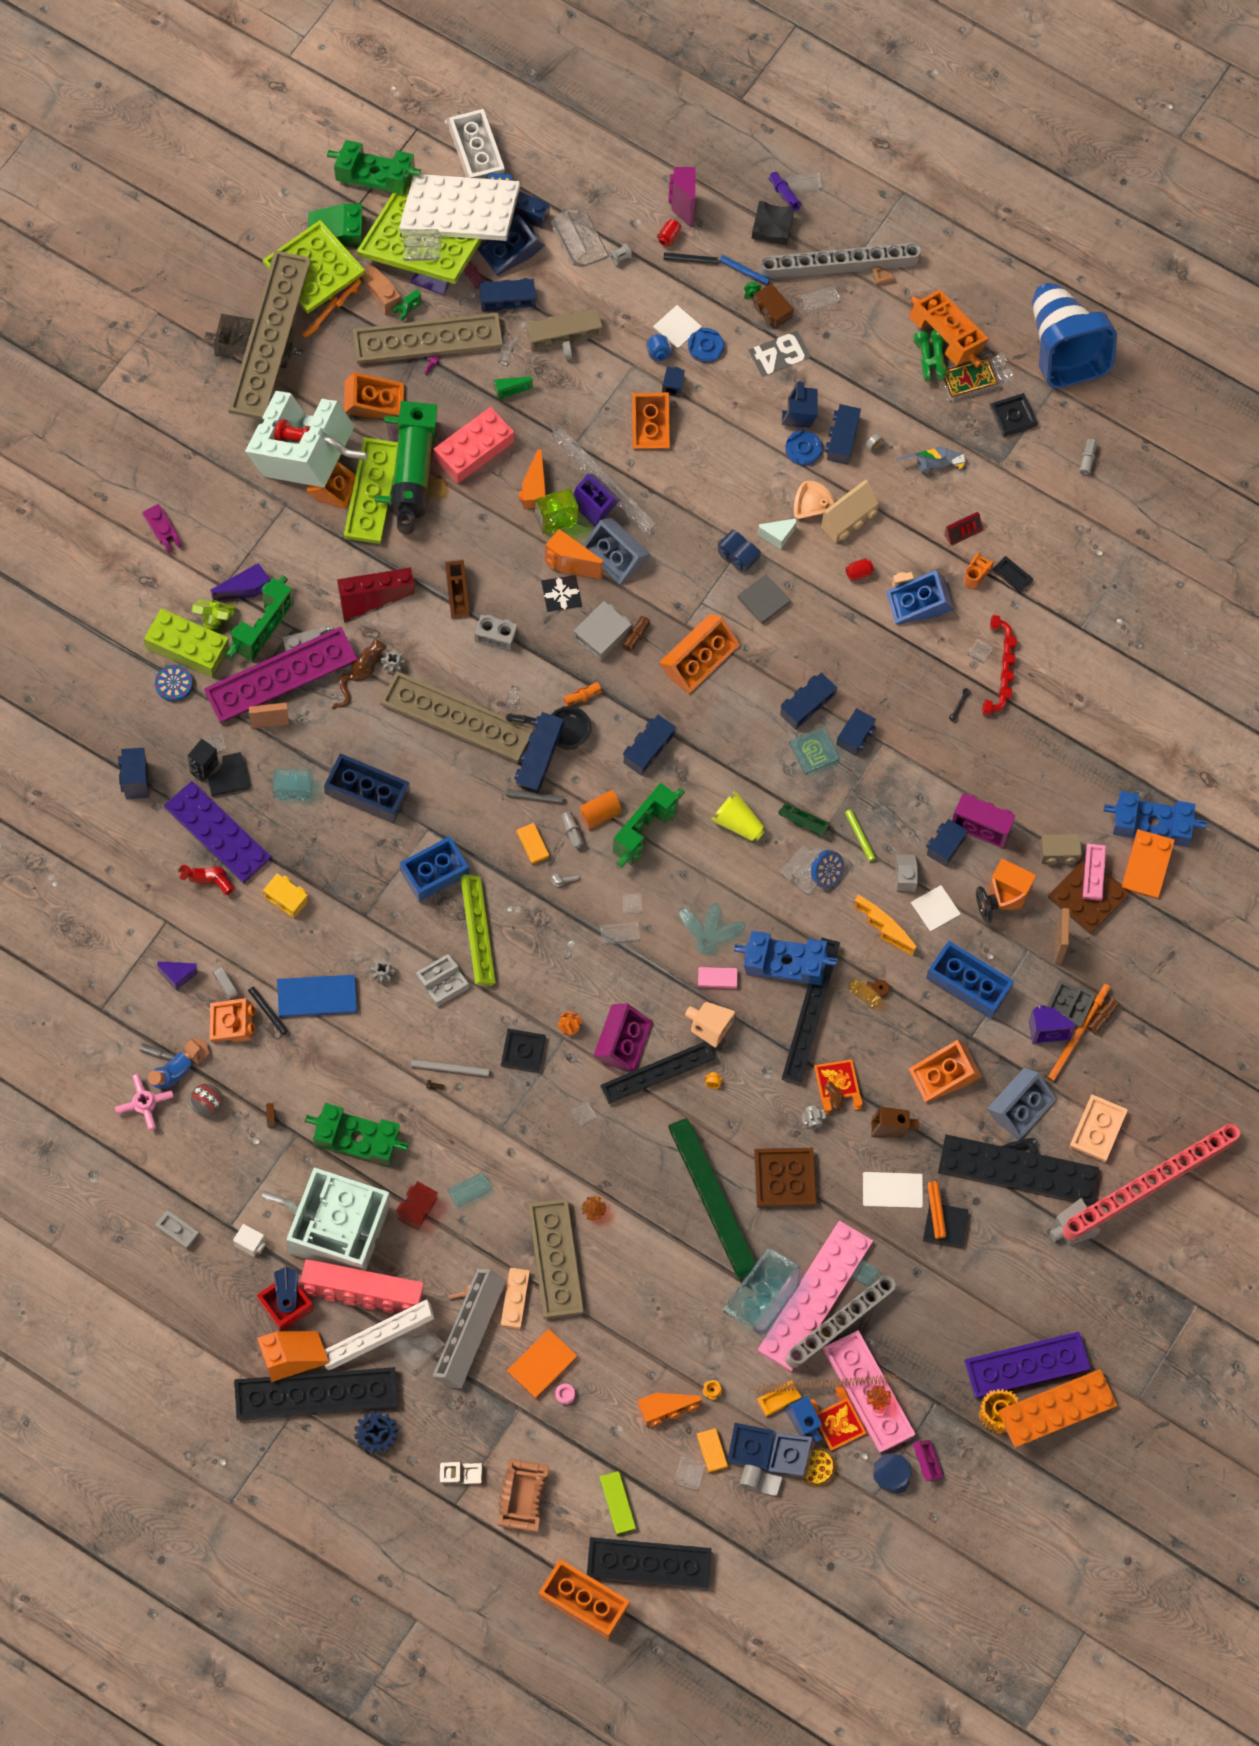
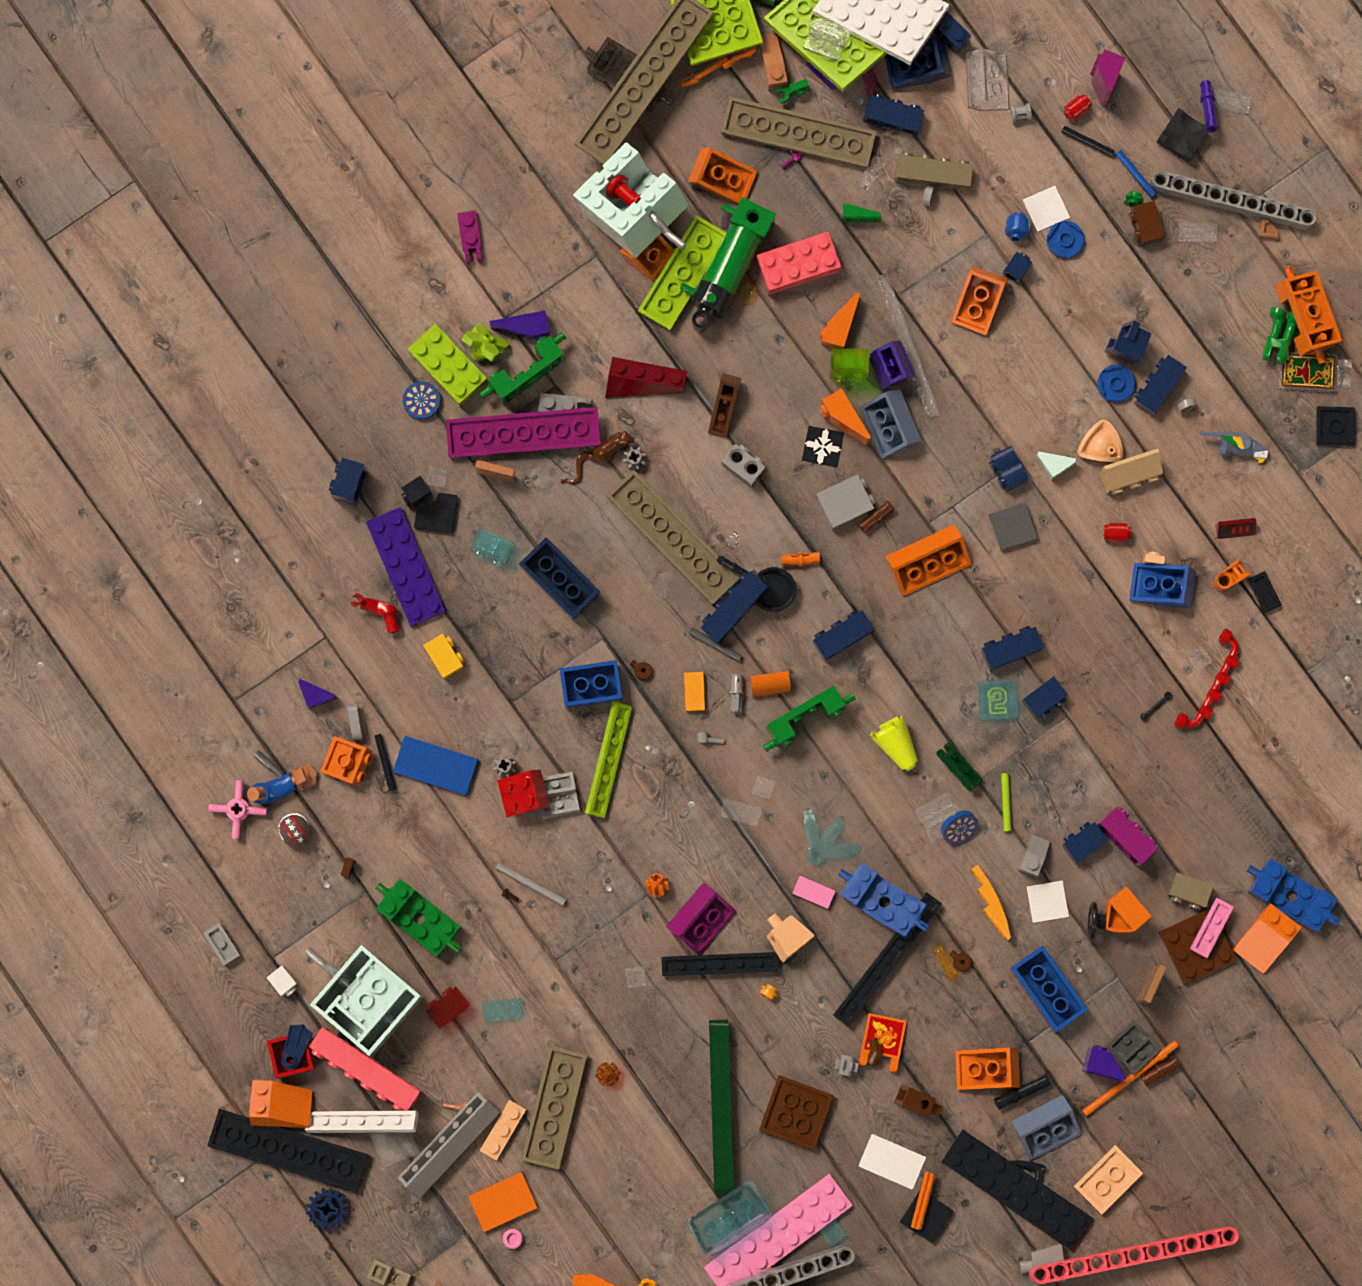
camera: 25 degrees right, 15 degrees up
(410, 985) = (523, 793): none -> red brick
(472, 842) = (639, 666): none -> reddish brown piece
(523, 1050) = (604, 893): black tile -> none
(779, 353) = (1134, 274): sticker -> none
(979, 1087) = (1025, 1090): none -> black pin

